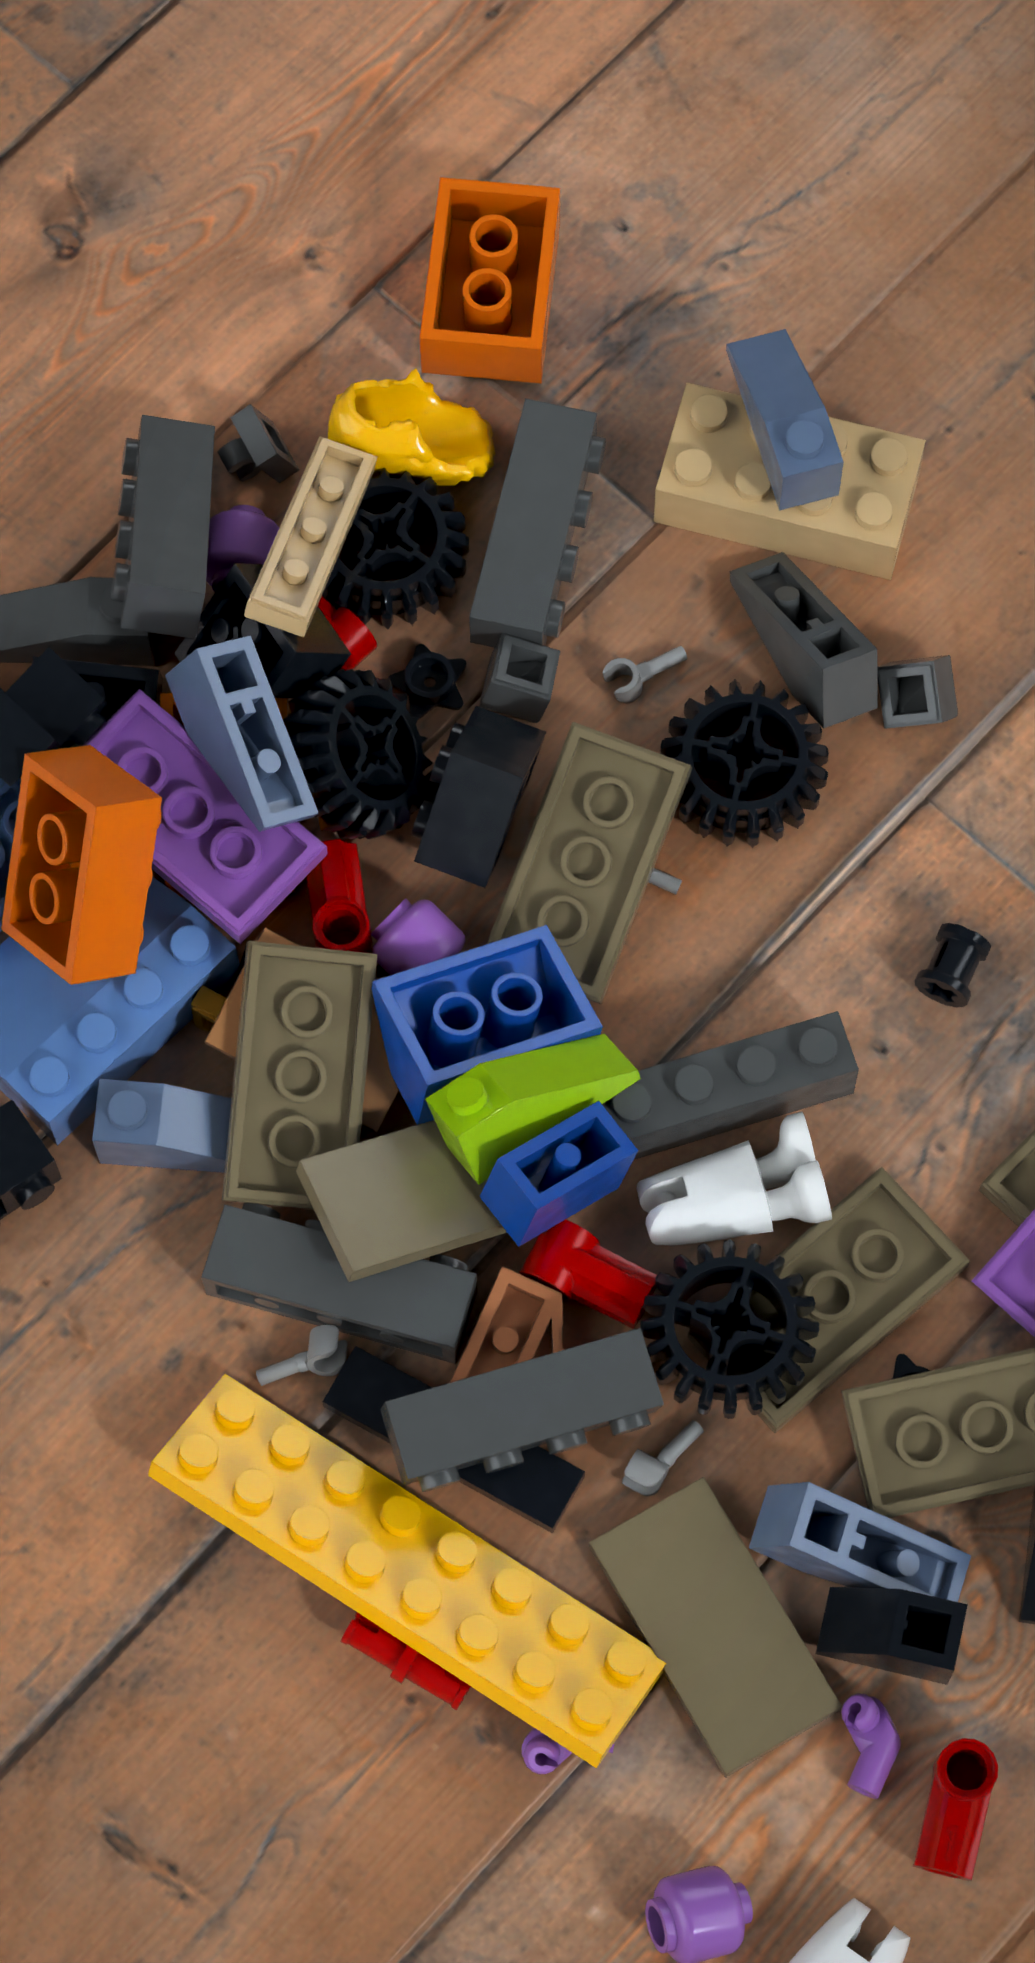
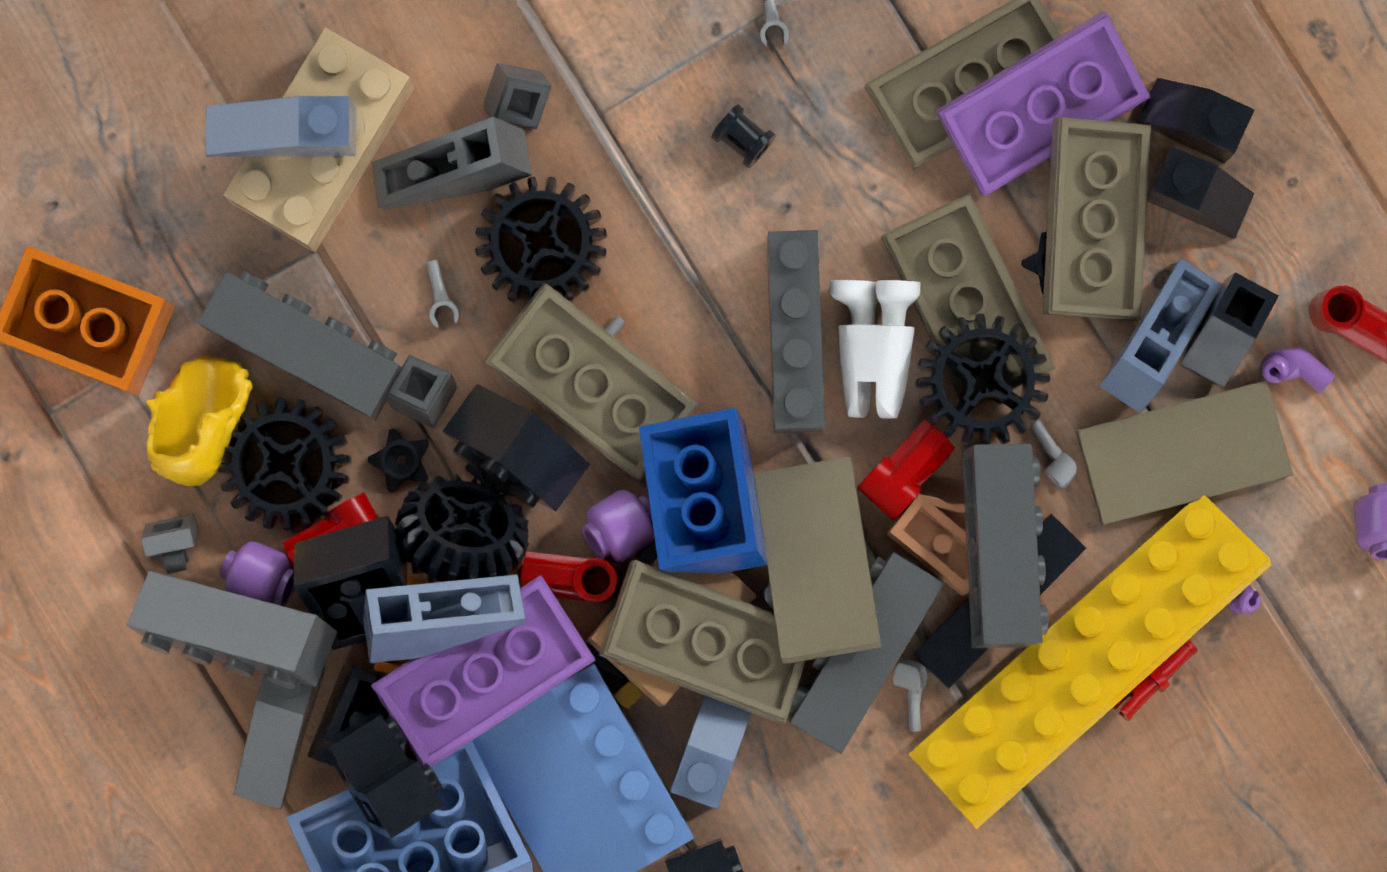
camera: 75 degrees left, 15 degrees up
(81, 863) = (512, 765): orange brick -> none
(310, 537) = (283, 520): tan tile -> none
(524, 1095) = (779, 476): lime slope -> none
(558, 1173) = (842, 471): blue brick -> none

